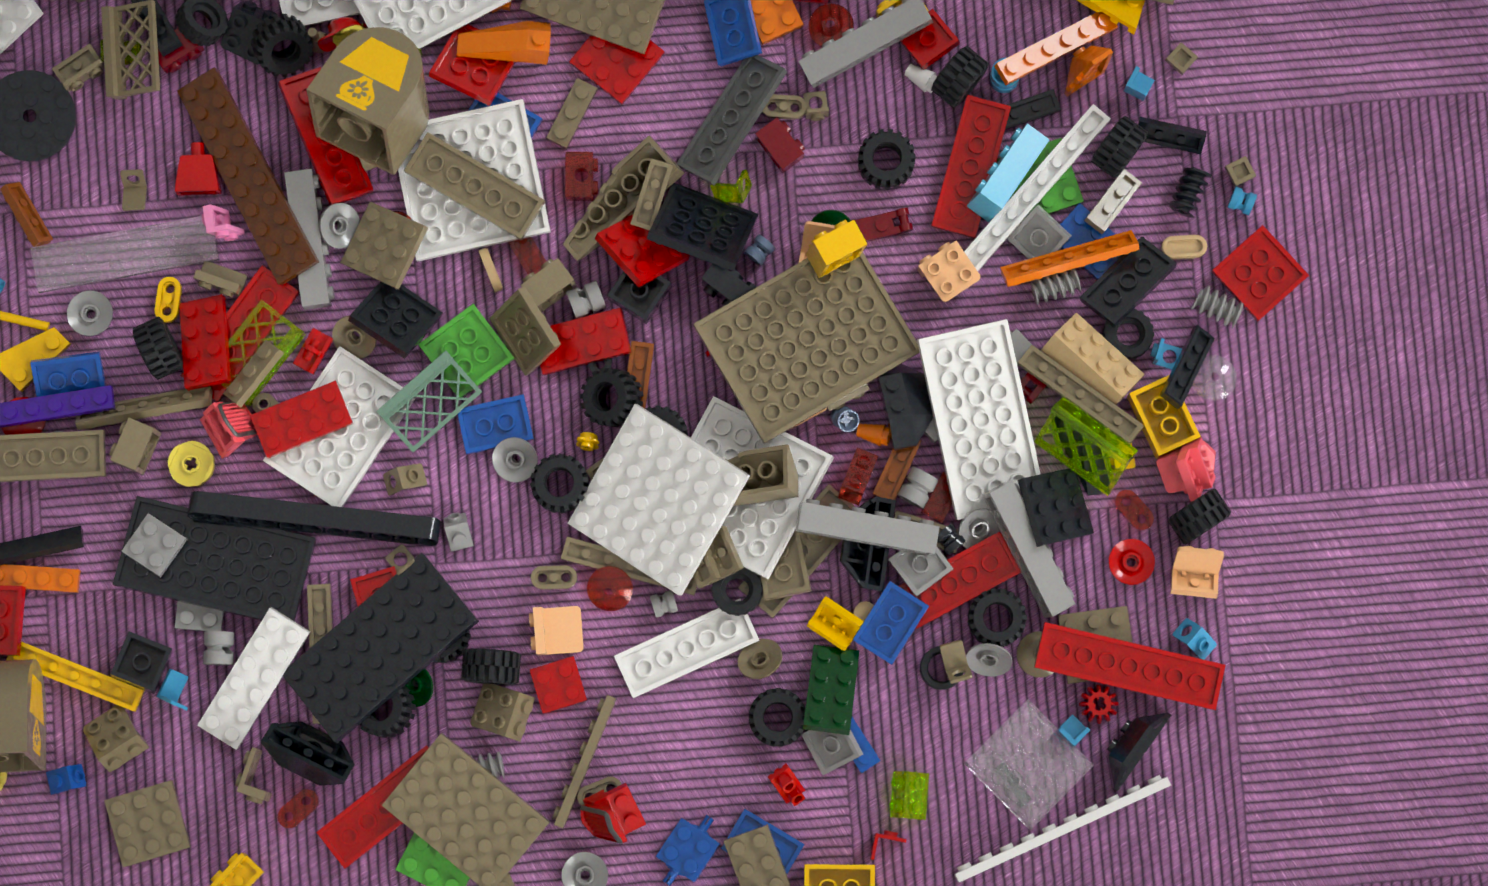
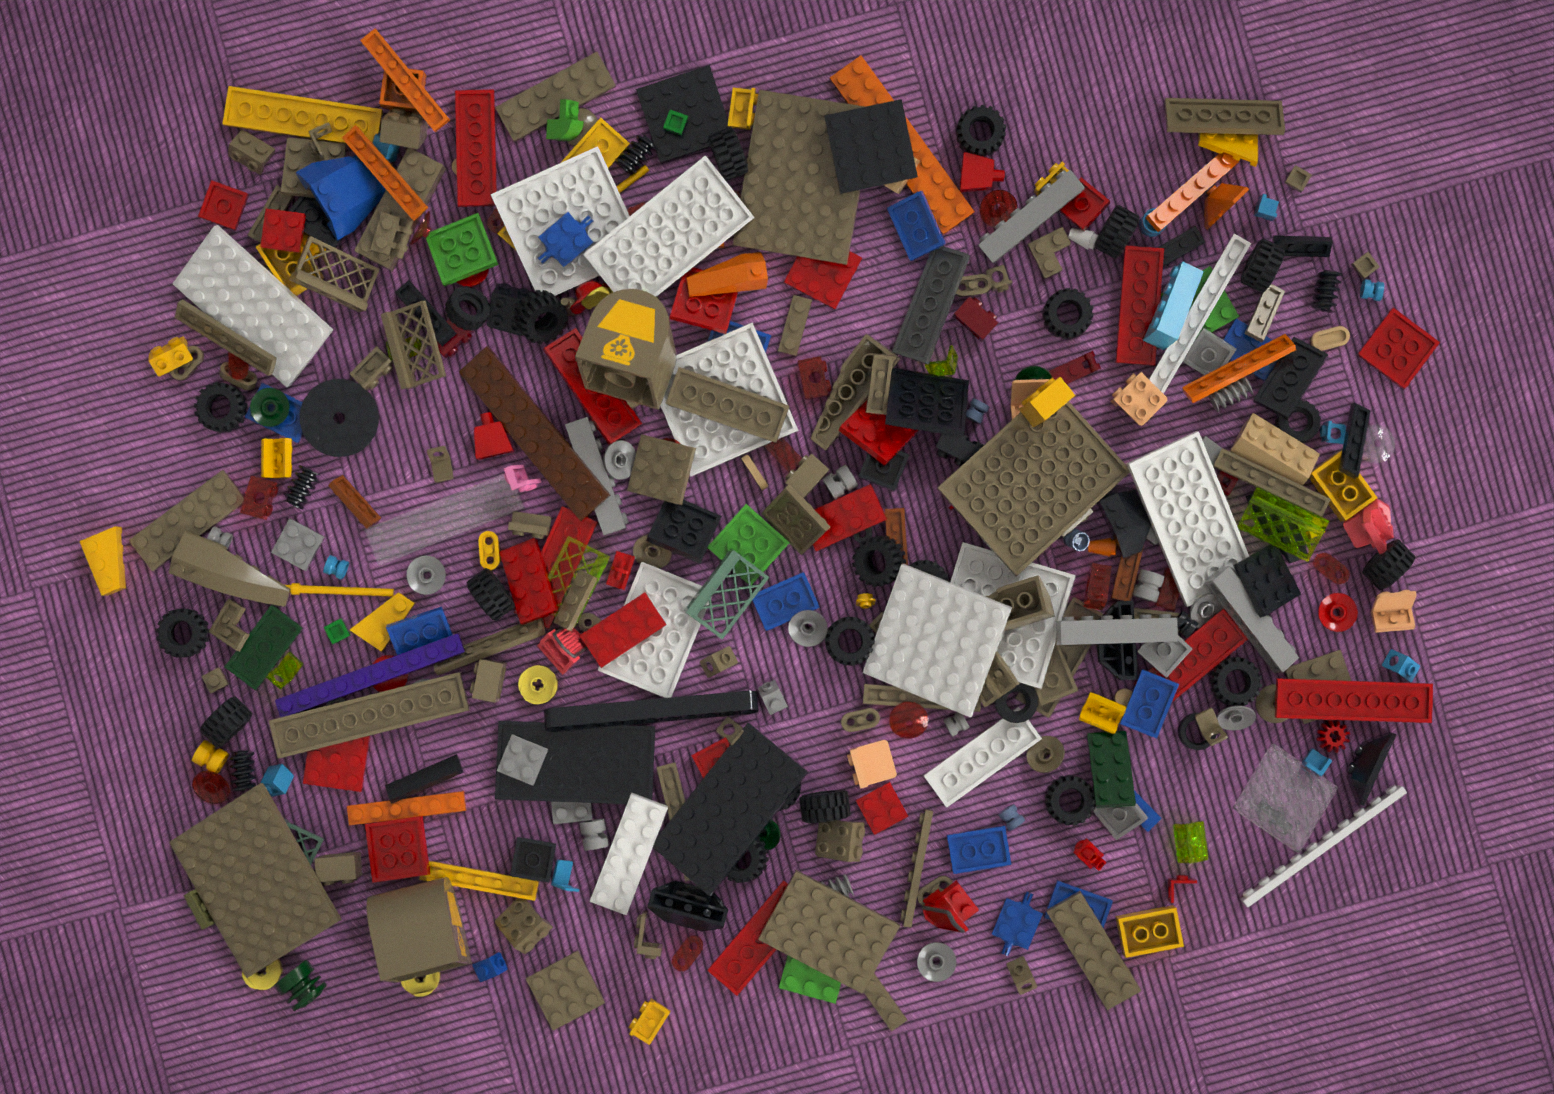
camera: 10 degrees left, 5 degrees up
(660, 754) = (979, 849): none -> blue plate
(704, 719) = (1011, 817): none -> sand blue wheel
(874, 86) = (1044, 249): none -> dark tan plate
(1218, 306) = (1369, 383): light grey piece -> none

